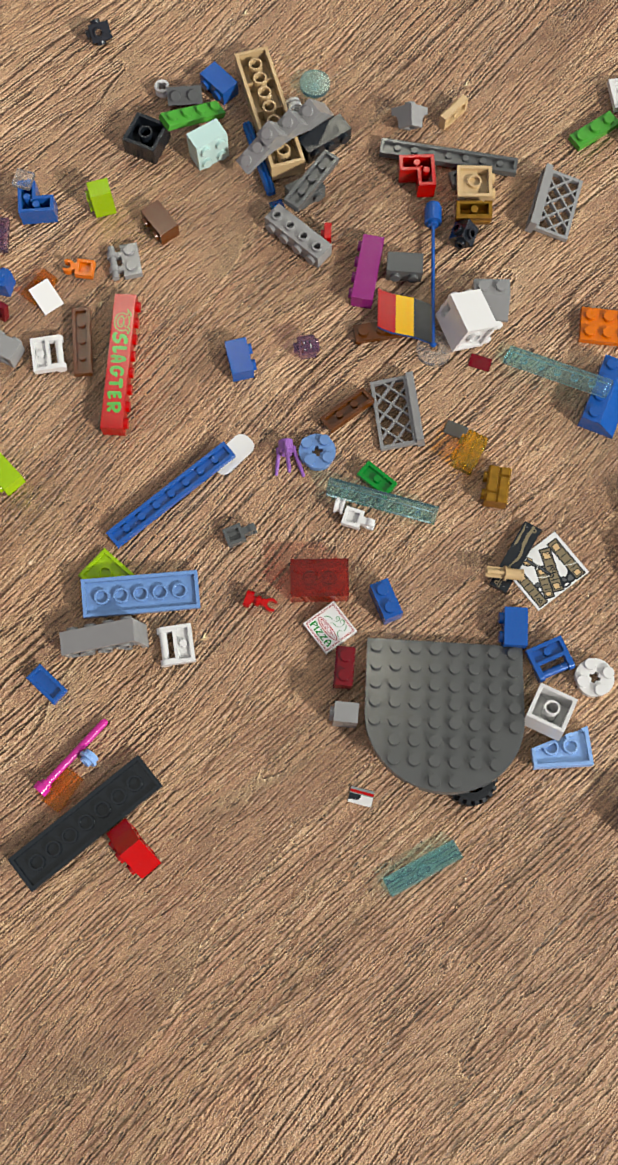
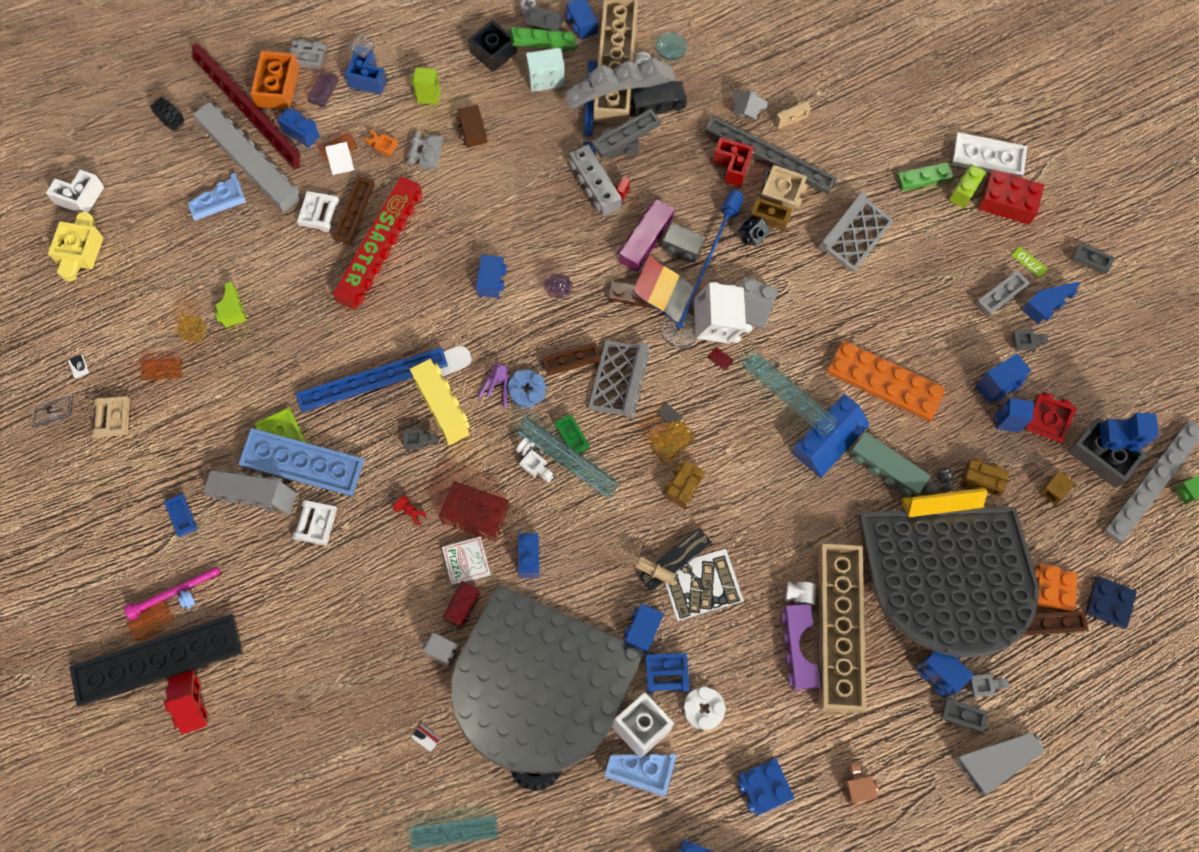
camera: 20 degrees right, 5 degrees down
(245, 491) = (440, 401): none -> light yellow brick

